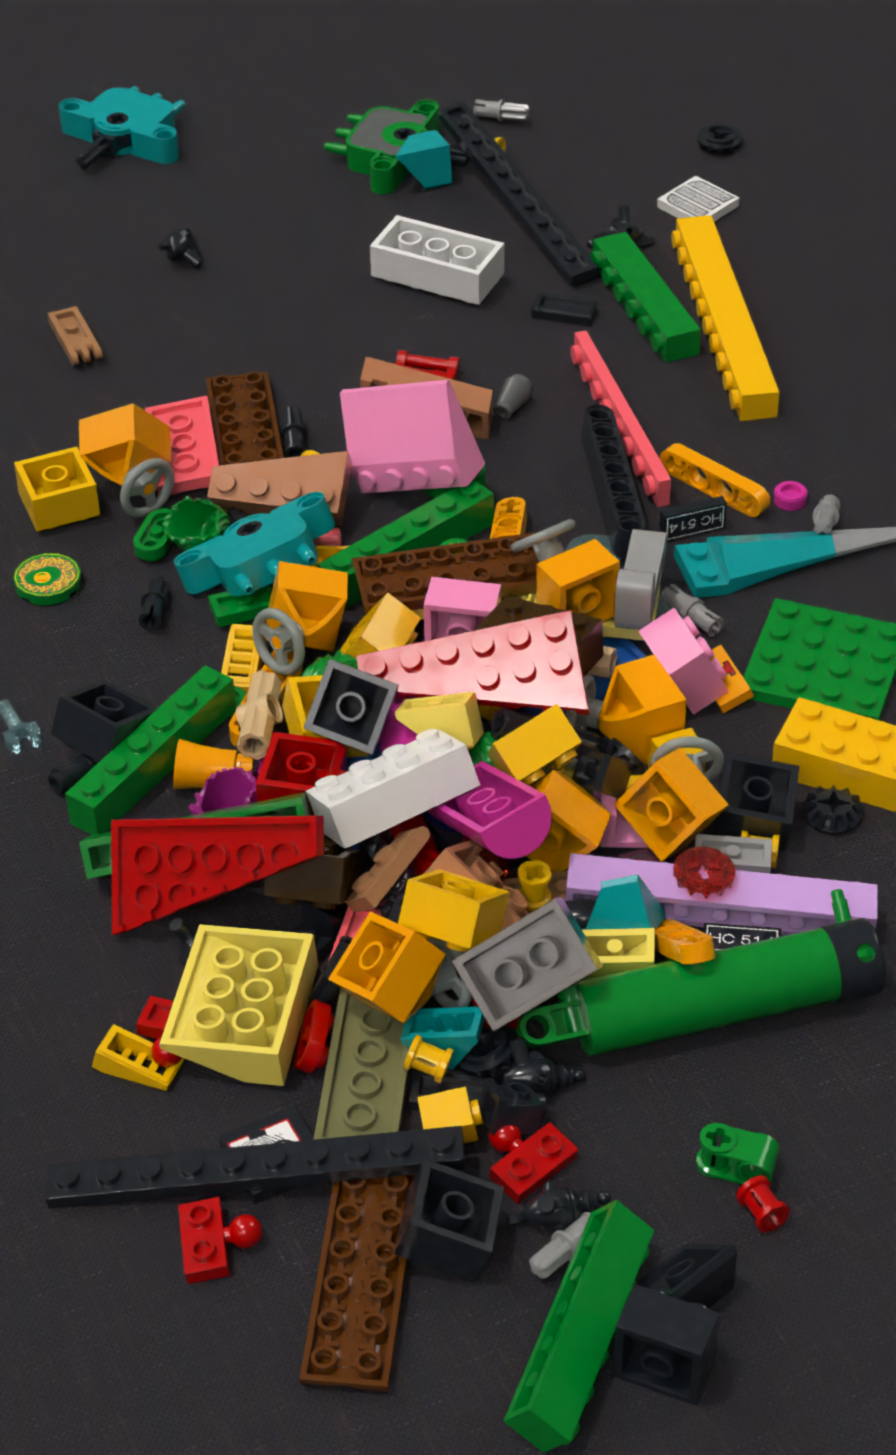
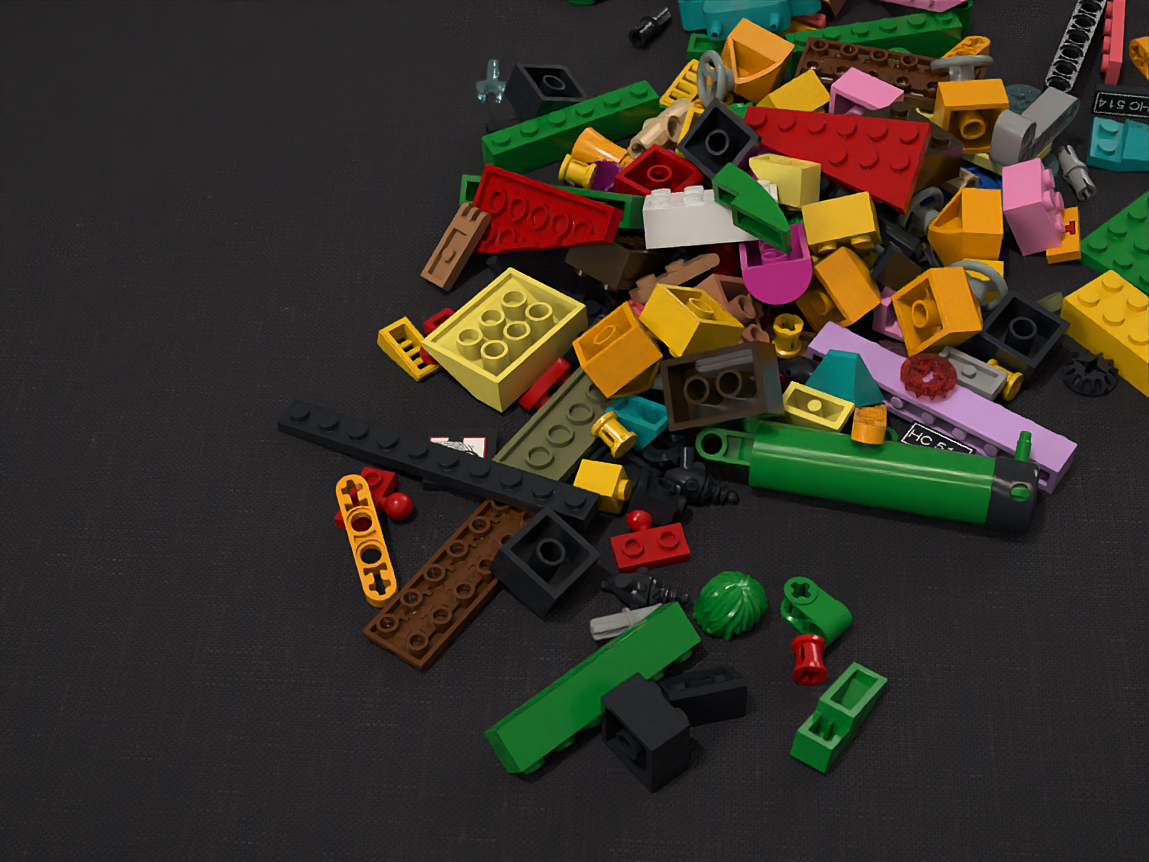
camera: 30 degrees right, 5 degrees up
(119, 925) = (456, 246): none -> medium nougat hinge
(204, 793) = (577, 172): none -> yellow bush
(247, 1276) = (366, 540): none -> light orange beam
(454, 763) = (752, 207): none -> green slope
(654, 1182) = (730, 604): none -> green hair
(759, 749) = (1052, 302): none -> olive plate
(826, 1247) = (837, 717): none -> green slope

